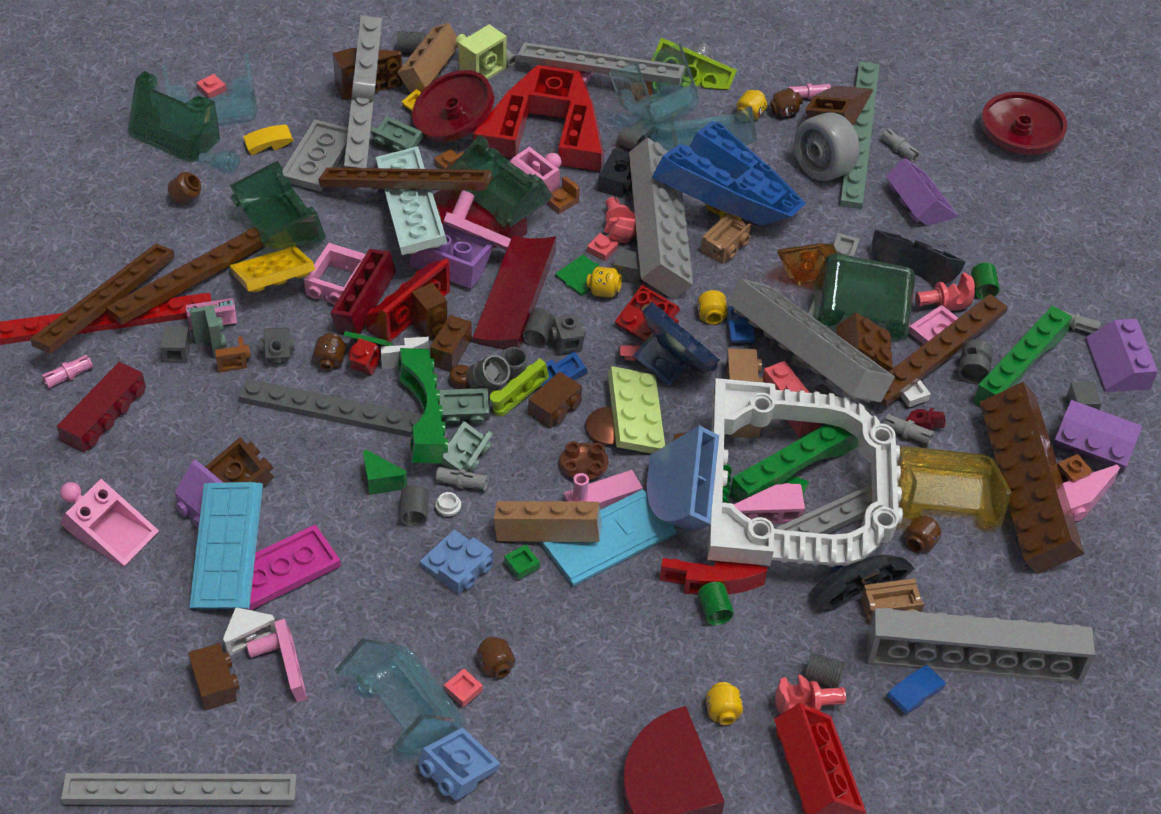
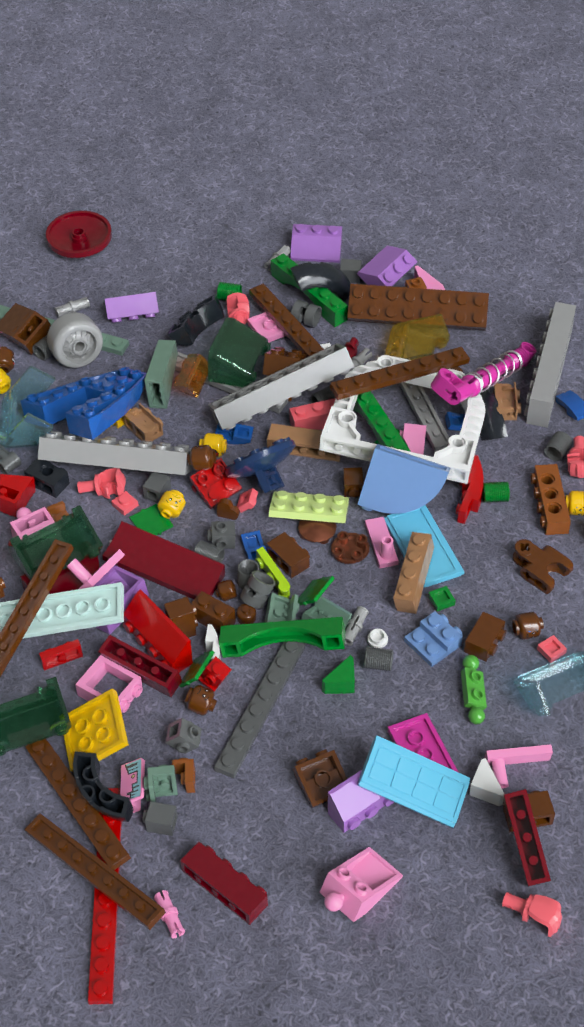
camera: 75 degrees left, 0 degrees up
(74, 693) = (539, 907): none -> coral piece
(157, 662) = (527, 837): none -> dark red brick
(192, 280) = (87, 773): none -> black brick
(373, 230) = (61, 654): none -> red plate
(386, 607) = (473, 689): none -> bright green plate
(467, 611) = (485, 636): none -> reddish brown brick
(490, 348) = (226, 590): none -> reddish brown piece
(502, 430) = (315, 590): none -> green piece
(602, 662) = (538, 562): none -> reddish brown piece
(612, 334) = (227, 510): none -> reddish brown tile
(663, 282) = (202, 457): none -> reddish brown head
(685, 685) = (551, 499): none -> dark orange brick
(801, 229) = (161, 373): none -> sand green slope
(857, 523) = (472, 384): none -> dark pink piece
(864, 451) = (399, 373): none -> reddish brown plate
(1036, 360) = (321, 275): none -> black brick

